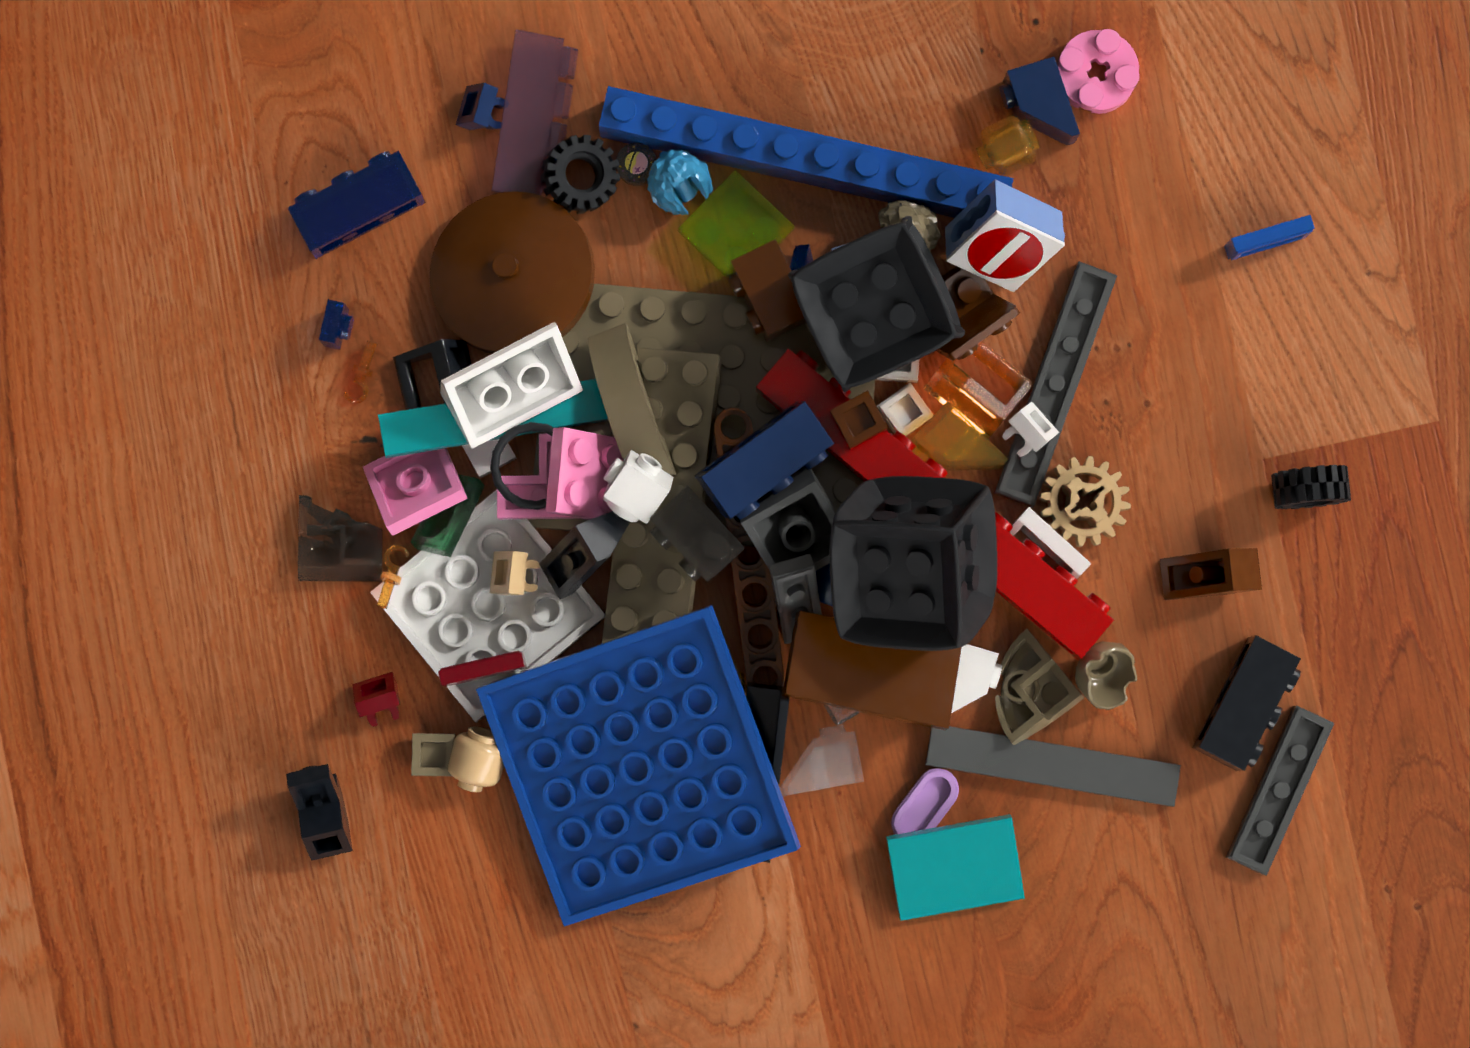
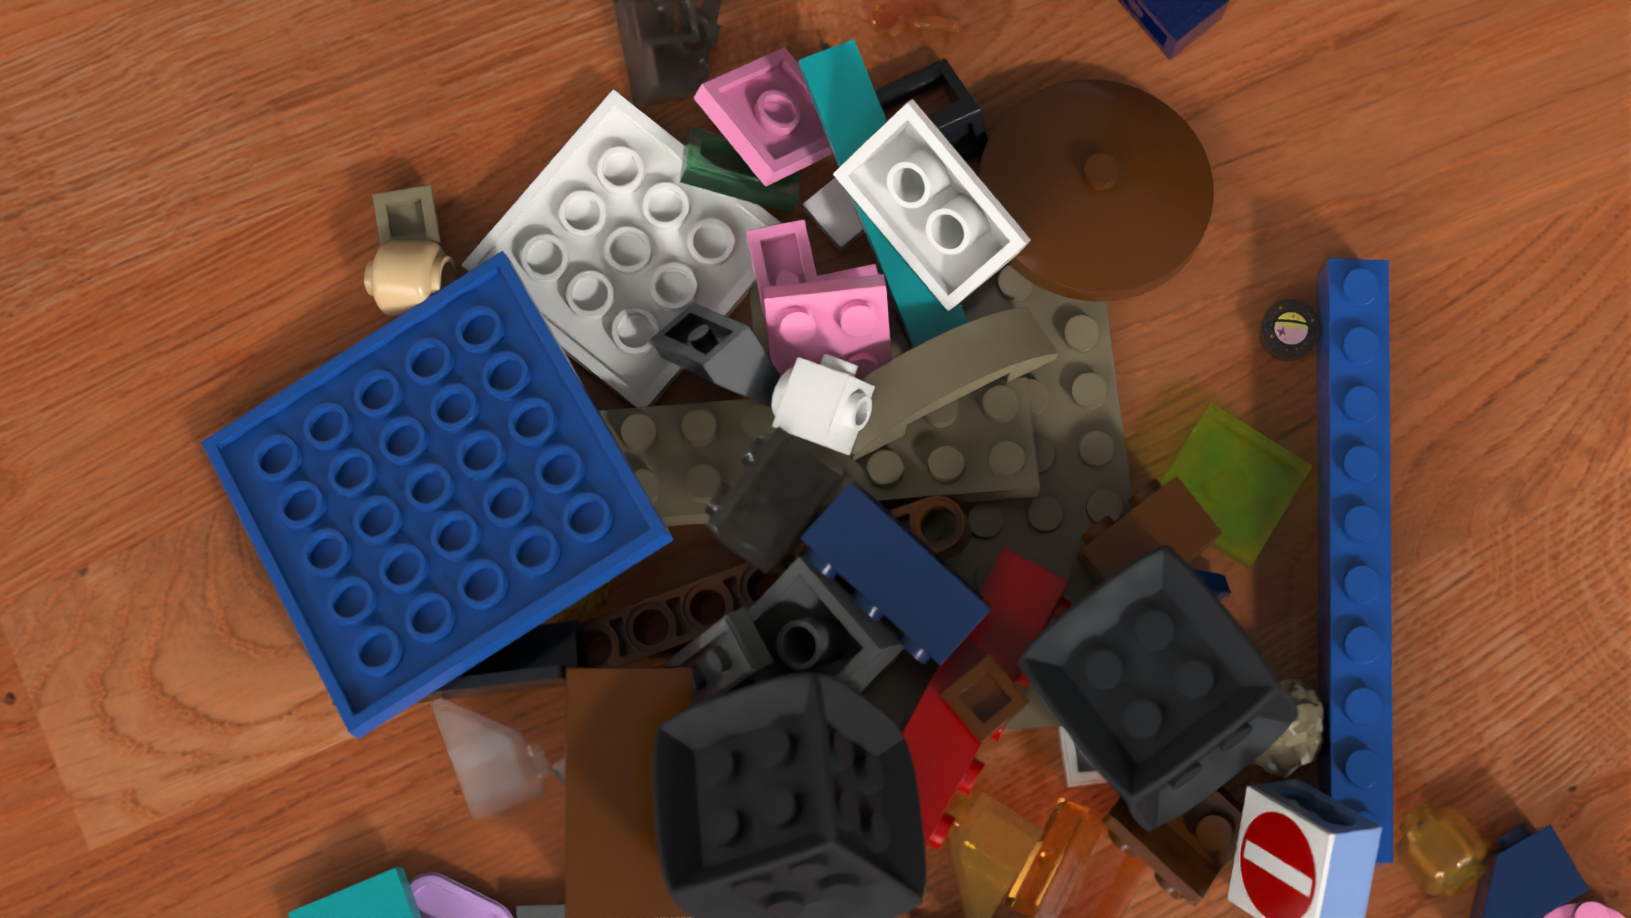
camera: 85 degrees right, 5 degrees down
(320, 811) = (302, 87): black brick -> none
(376, 695) = (473, 127): dark red tile -> none
(391, 577) = (637, 110): clear orange hand -> none
(478, 106) = (1317, 97): dark blue tile -> none
(482, 668) = (533, 254): dark red tile -> none
(495, 461) = (825, 210): black piece -> none
(510, 573) = (672, 264): tan tile -> none
(528, 110) = (1335, 168): windscreen -> none
(597, 157) = (1290, 262): black tyre -> none
(676, 179) = (1280, 386): dark azure piece -> none
(905, 410) = (1020, 777): tile -> none

